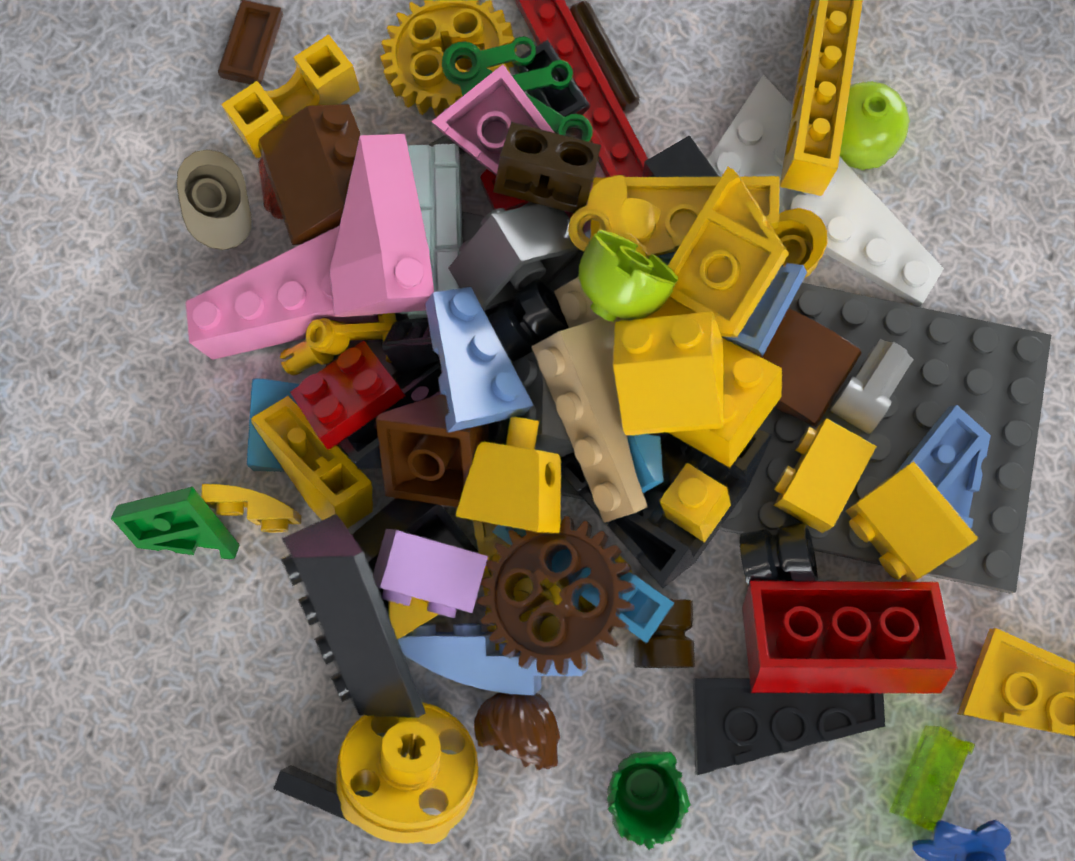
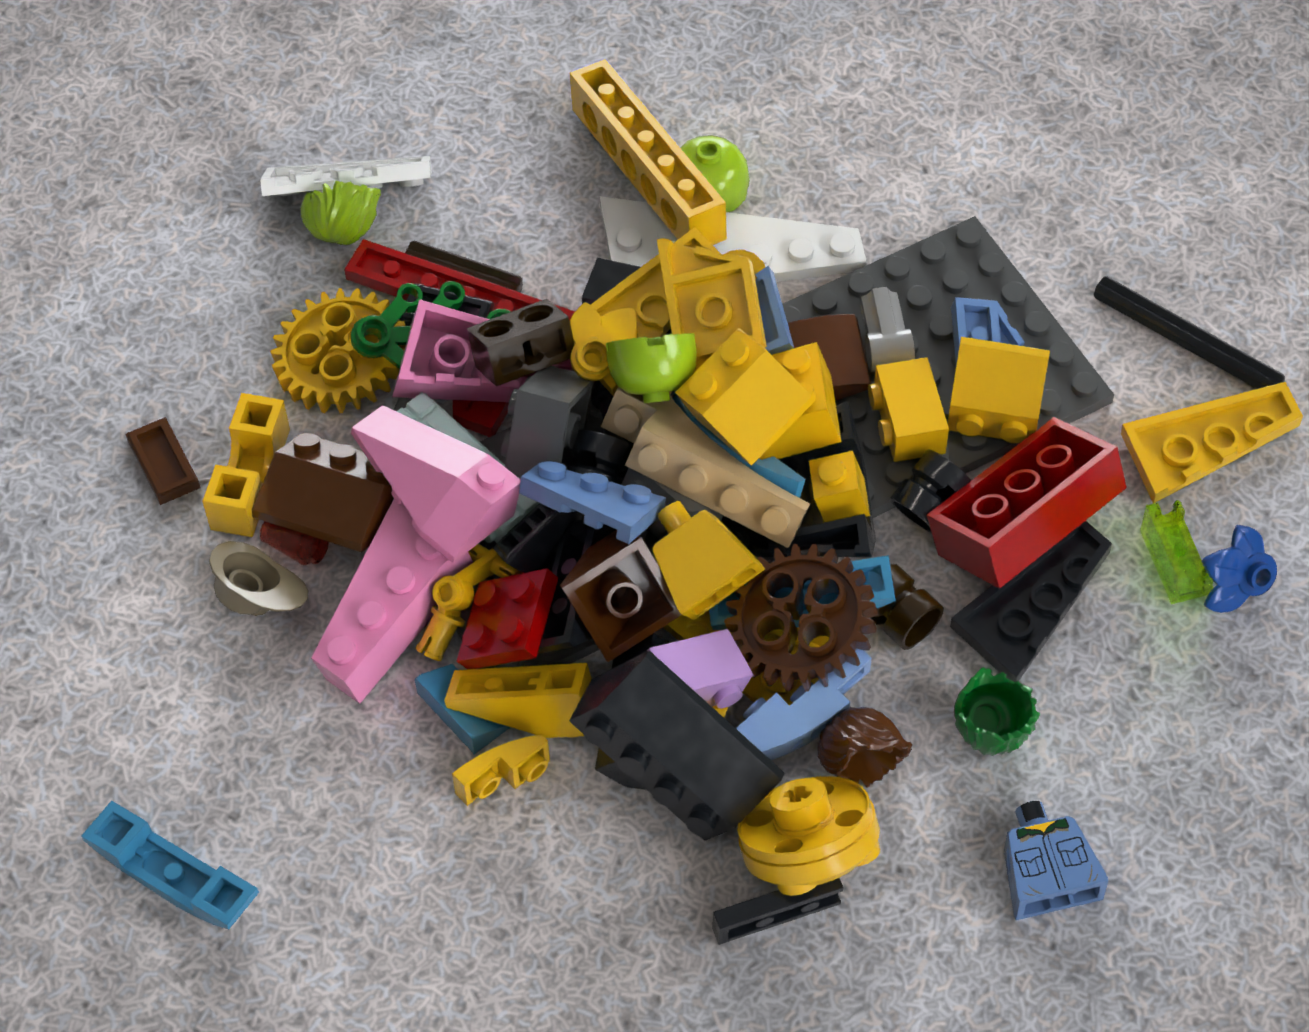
camera: 40 degrees left, 20 degrees down
(174, 523) = (454, 825): green wing -> none

